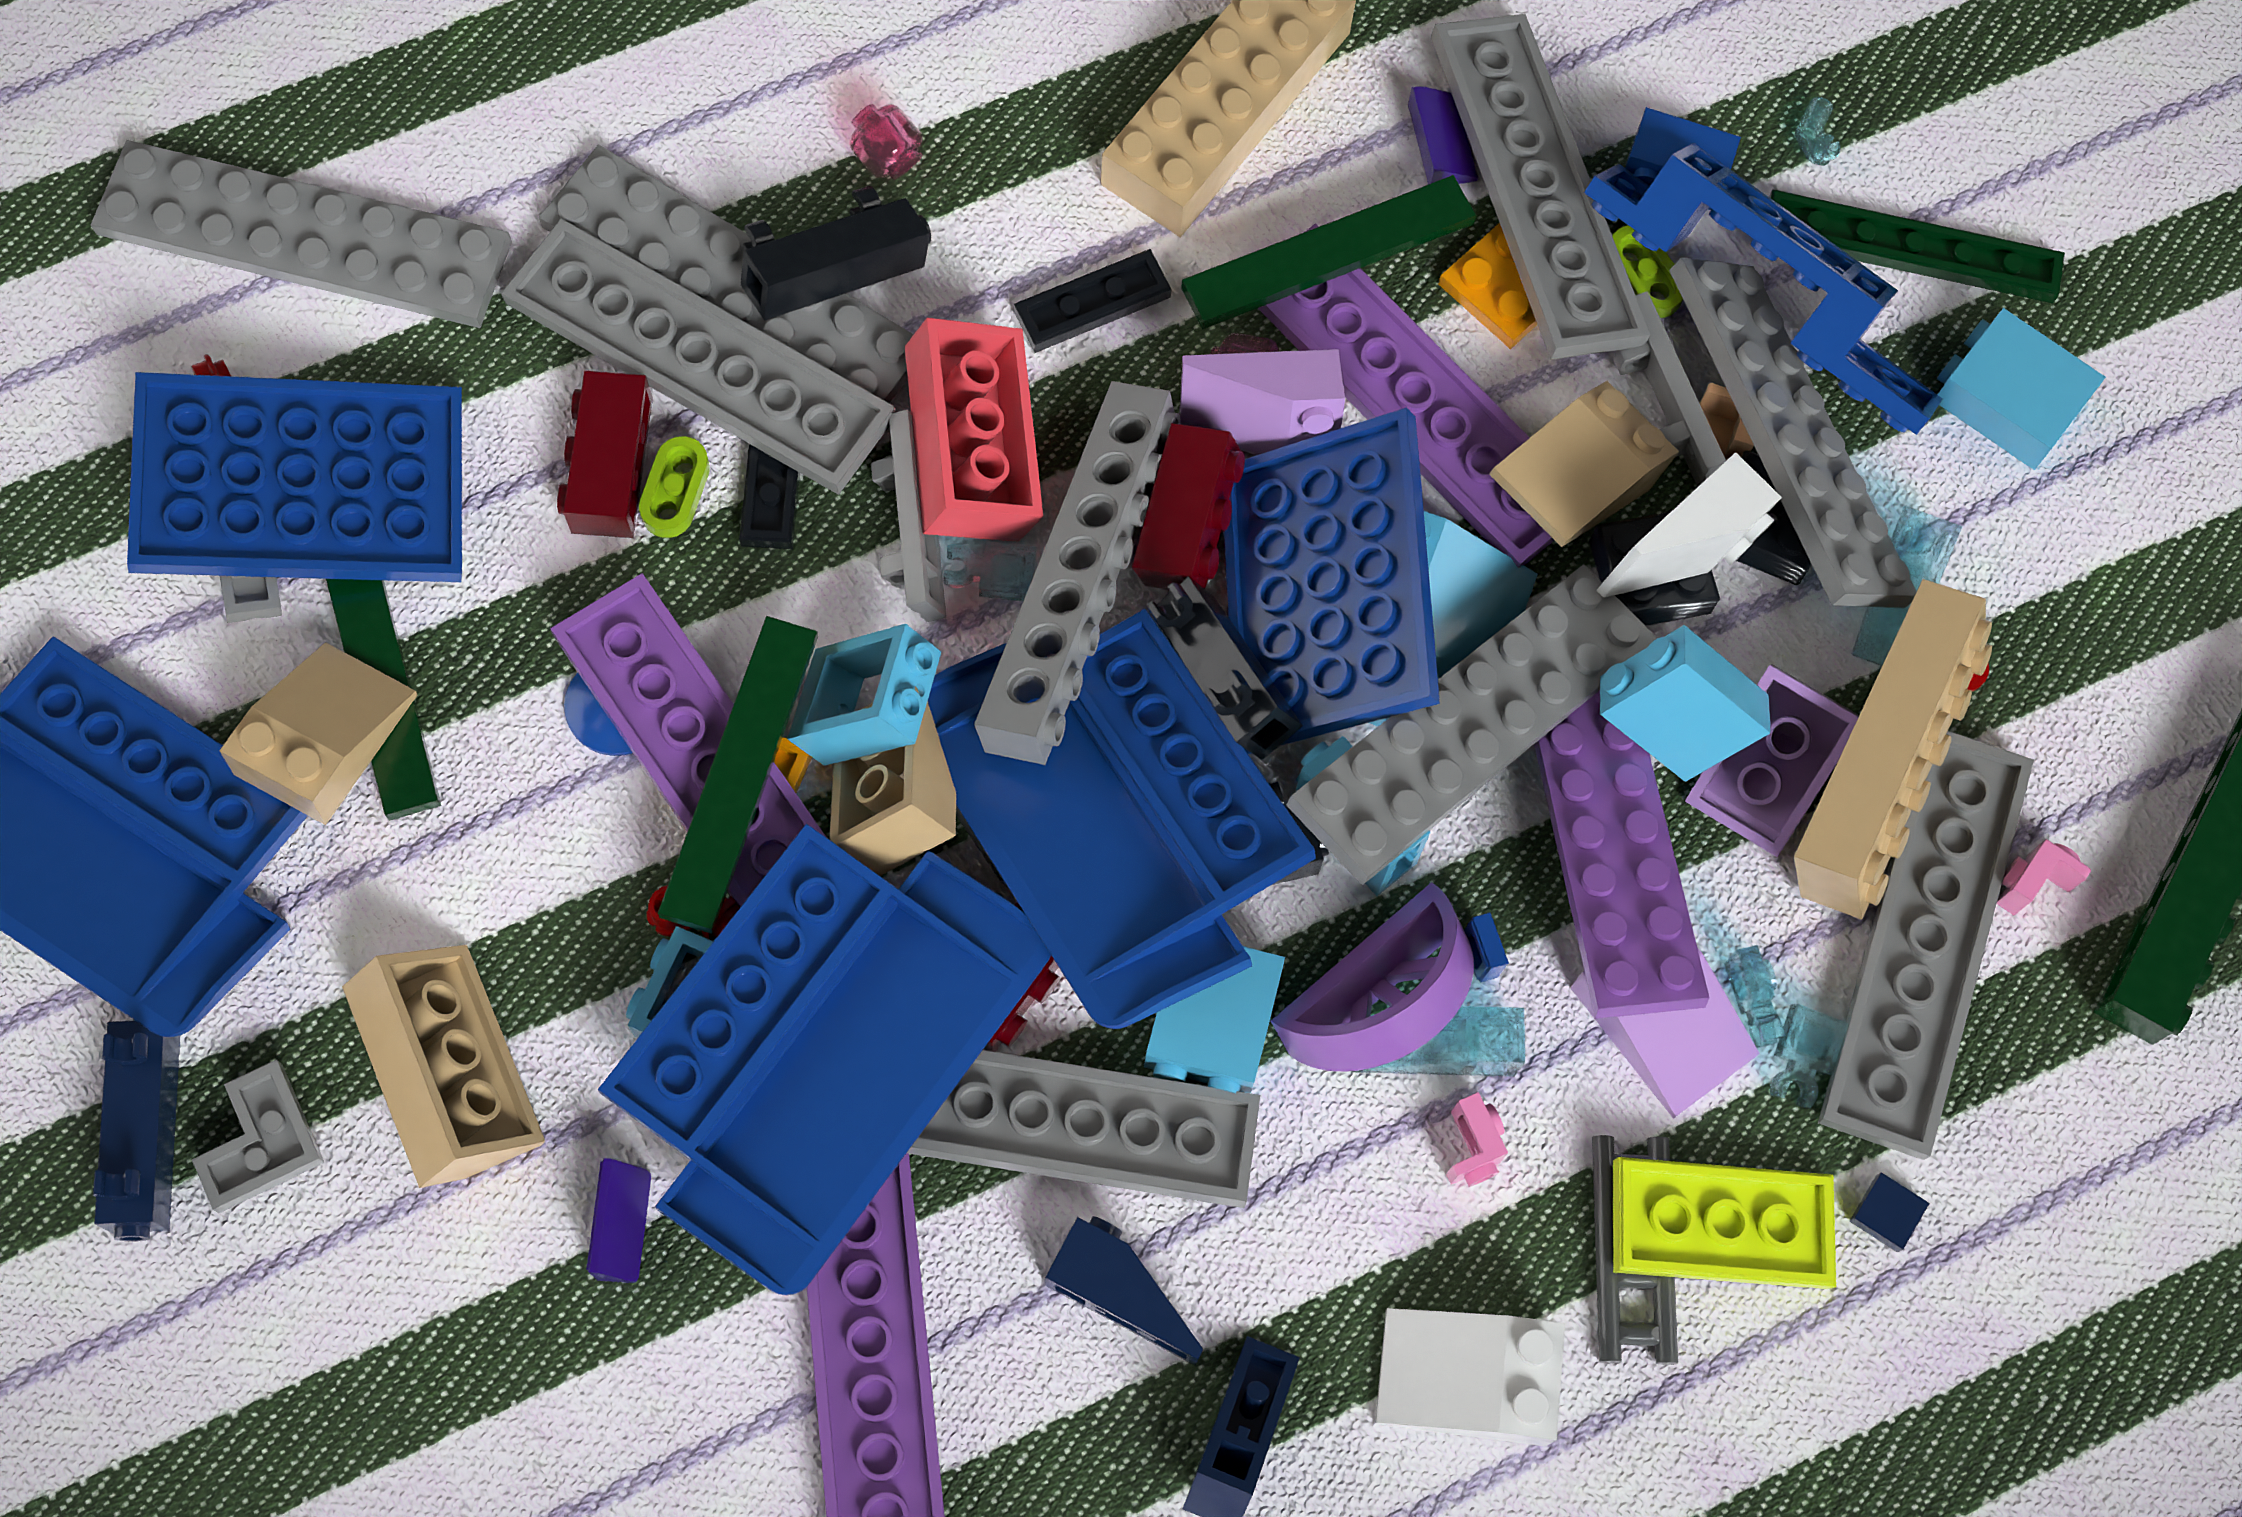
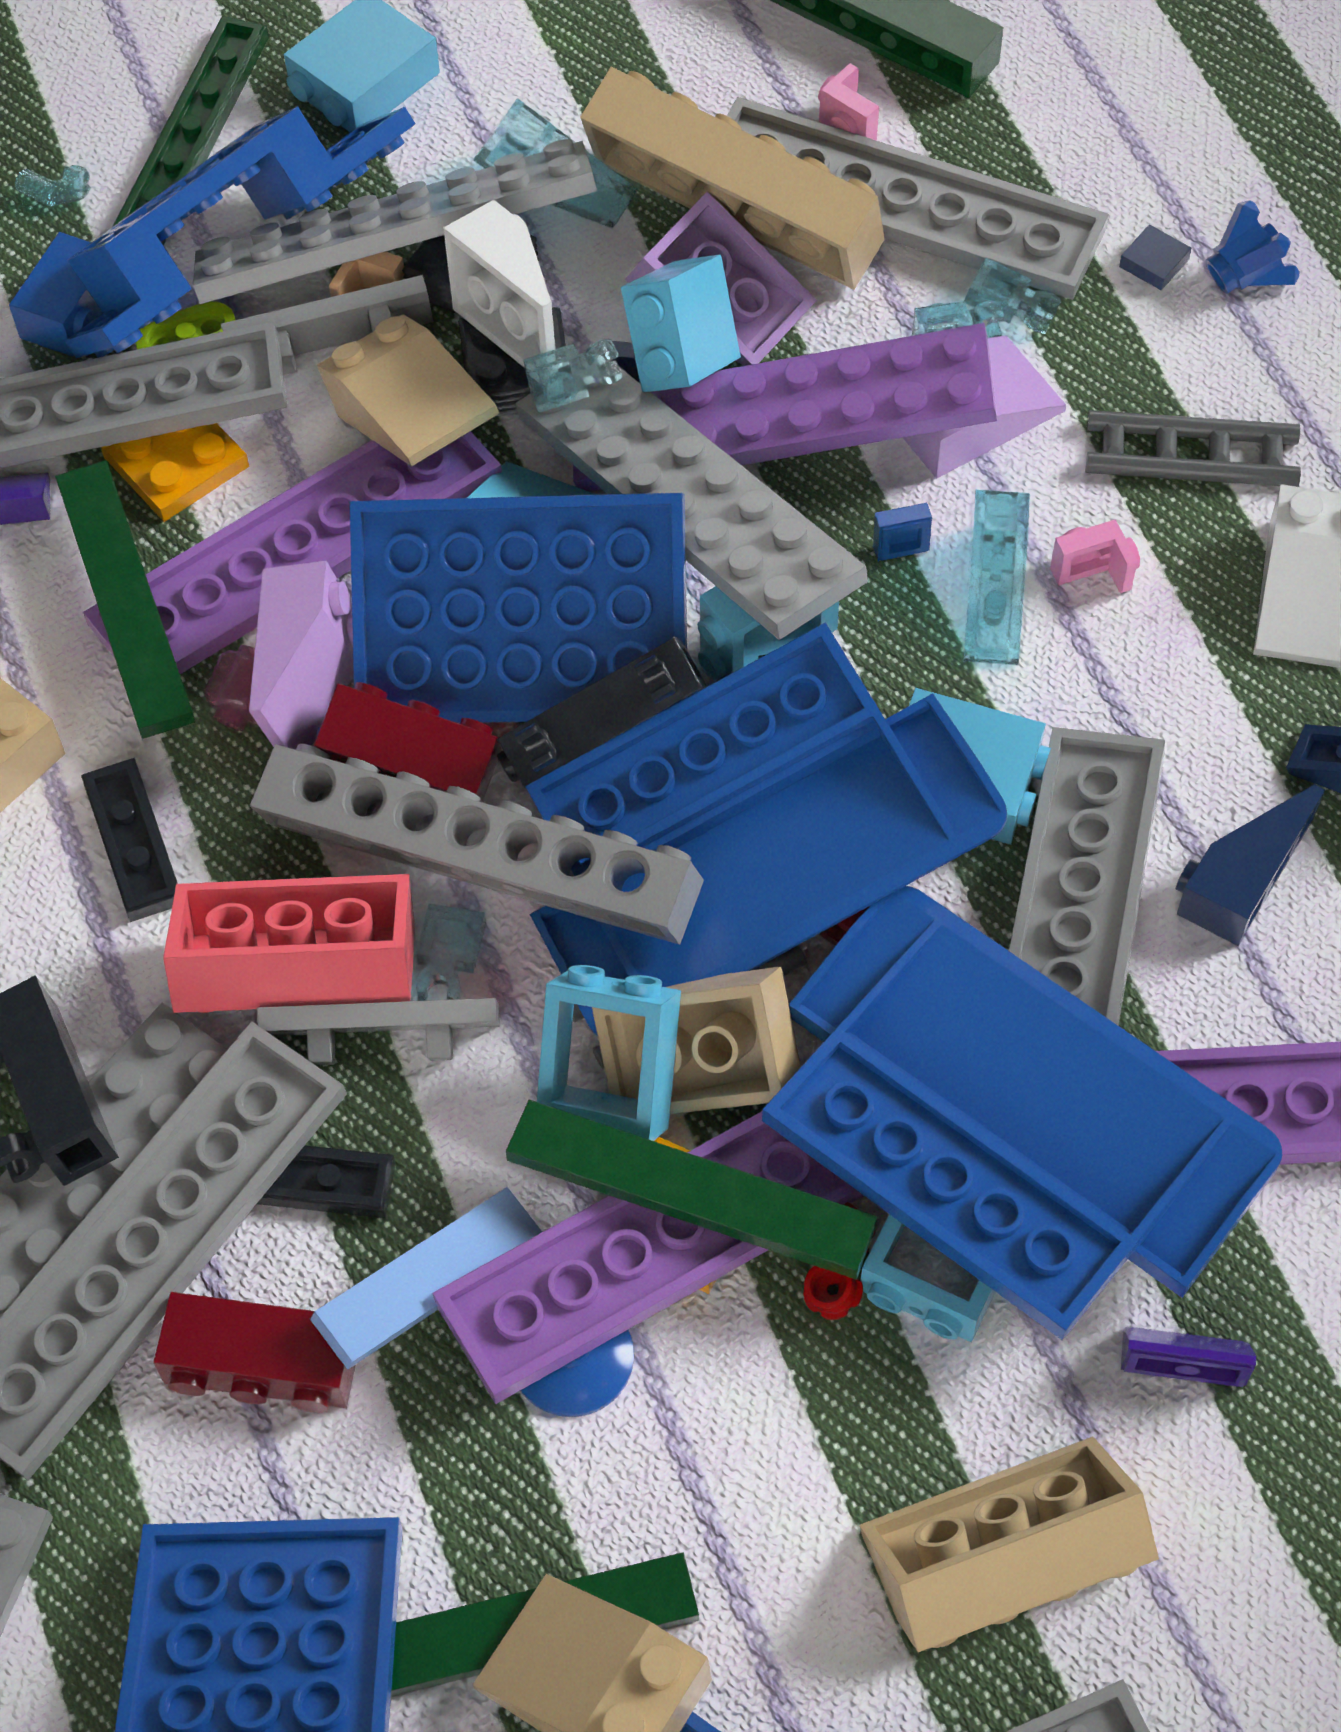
camera: 80 degrees left, 10 degrees down
(672, 489) = (312, 1277): lime plate -> none
(677, 581) = (403, 1289): none -> light blue tile
(1332, 1019) = (930, 631): medium lavender window -> none
(1596, 595) = (563, 373): none -> clear light blue plate
(1723, 1223) = (1171, 375): neon yellow tile -> none
(1895, 1311) = (1250, 253): none -> blue rock

